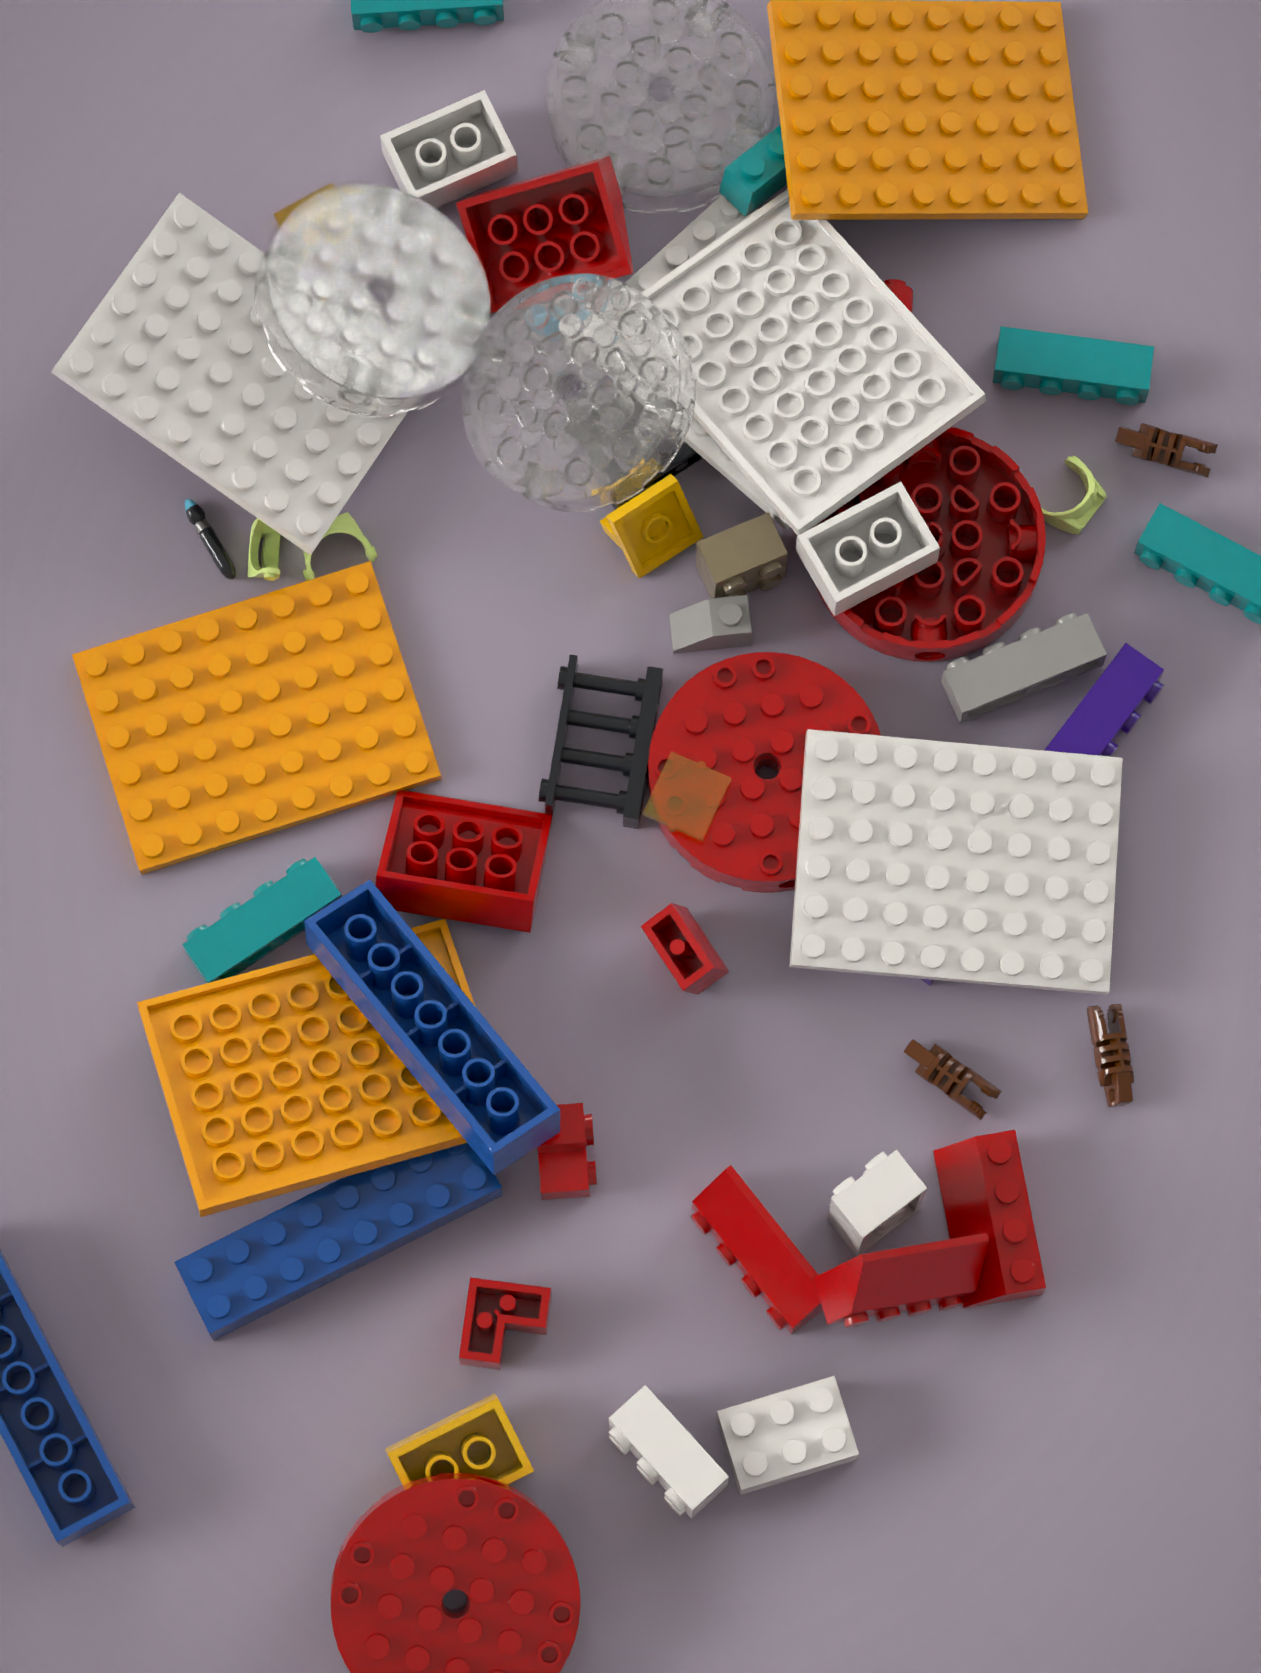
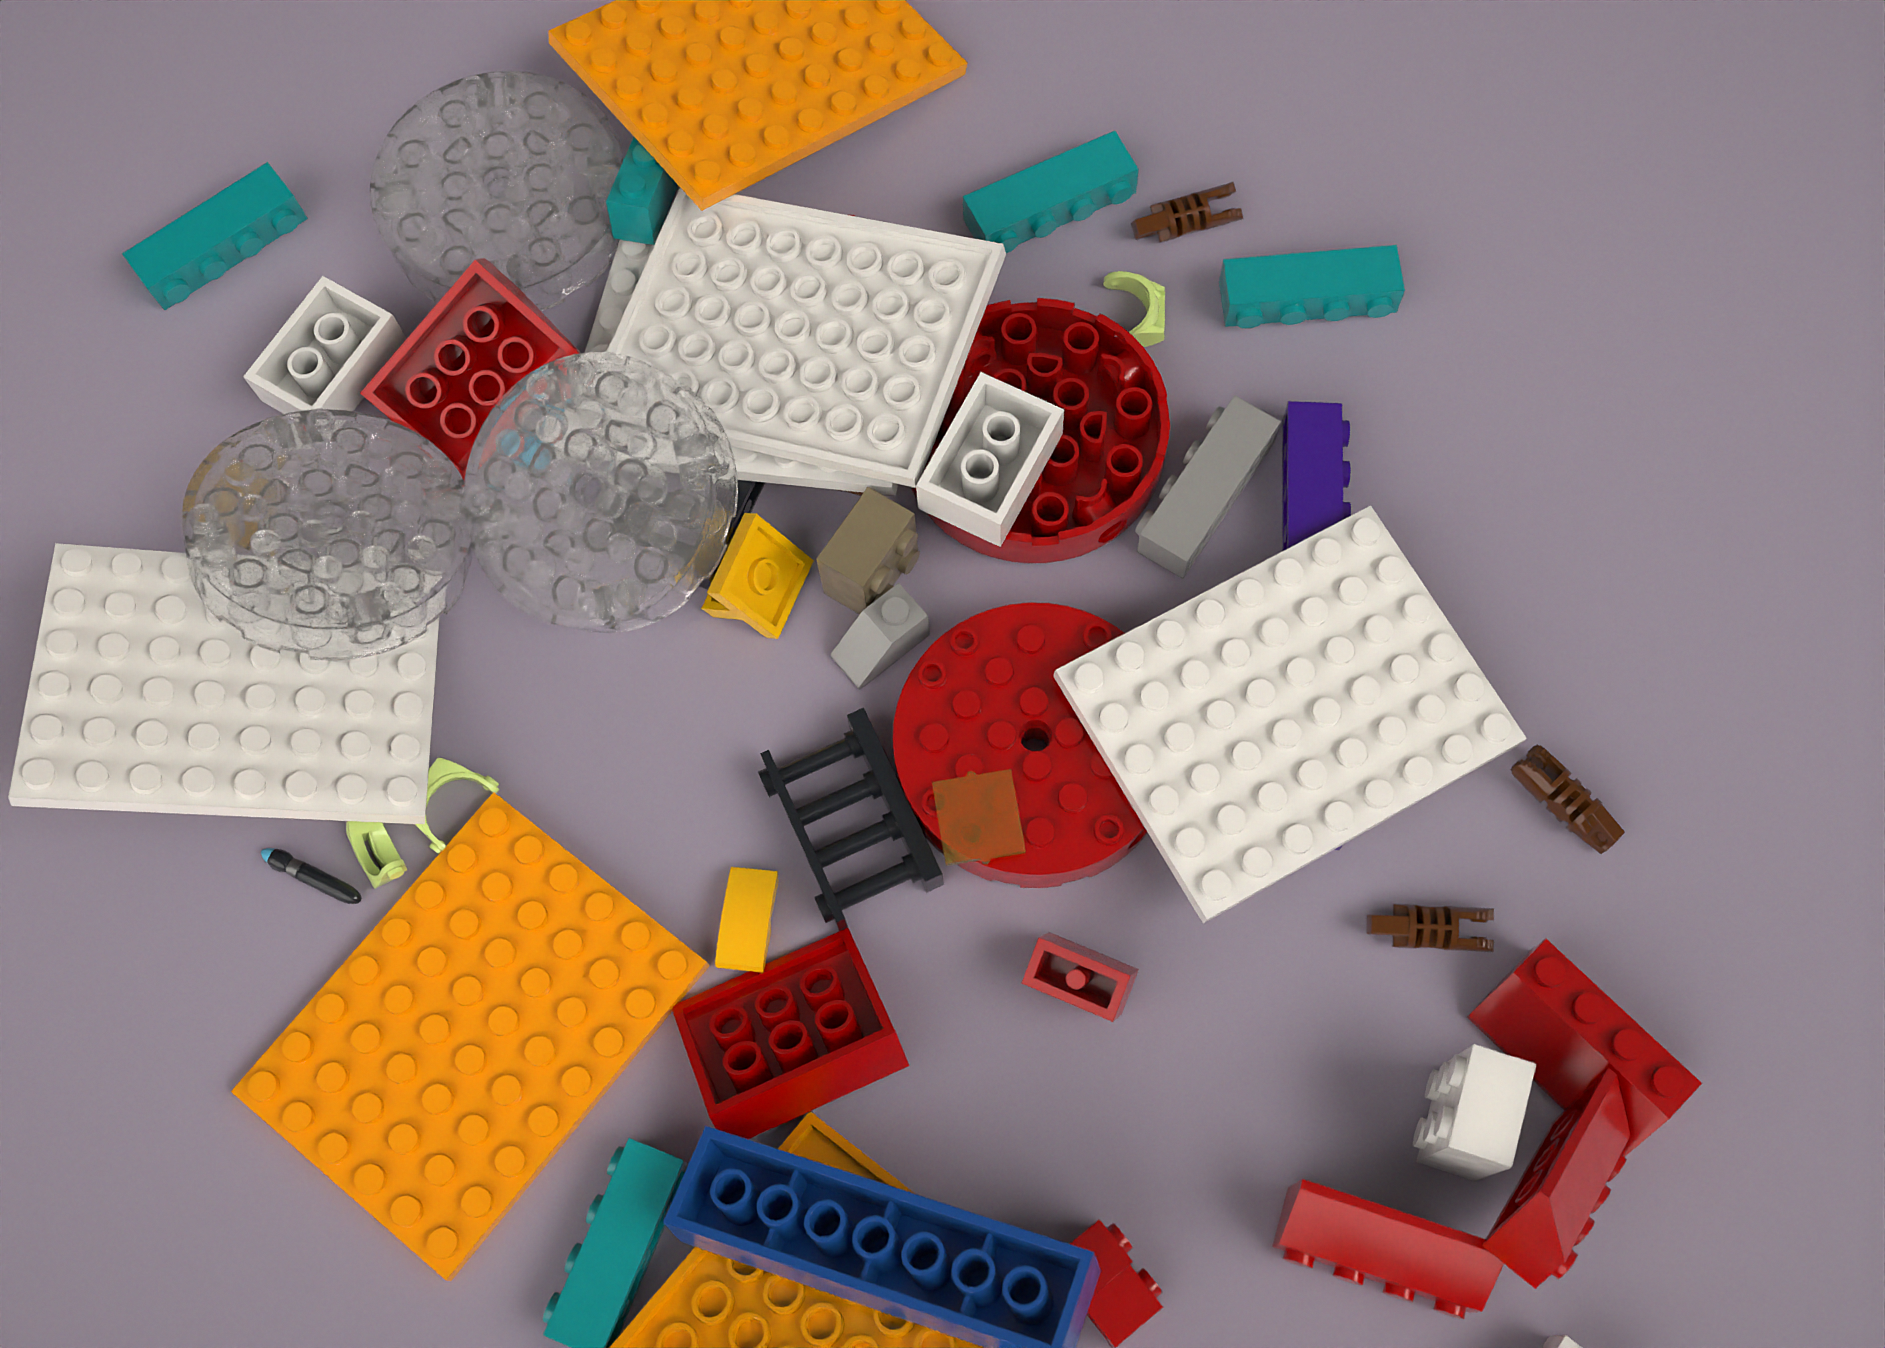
camera: 30 degrees left, 5 degrees down
(487, 763) = (746, 919): none -> yellow slope

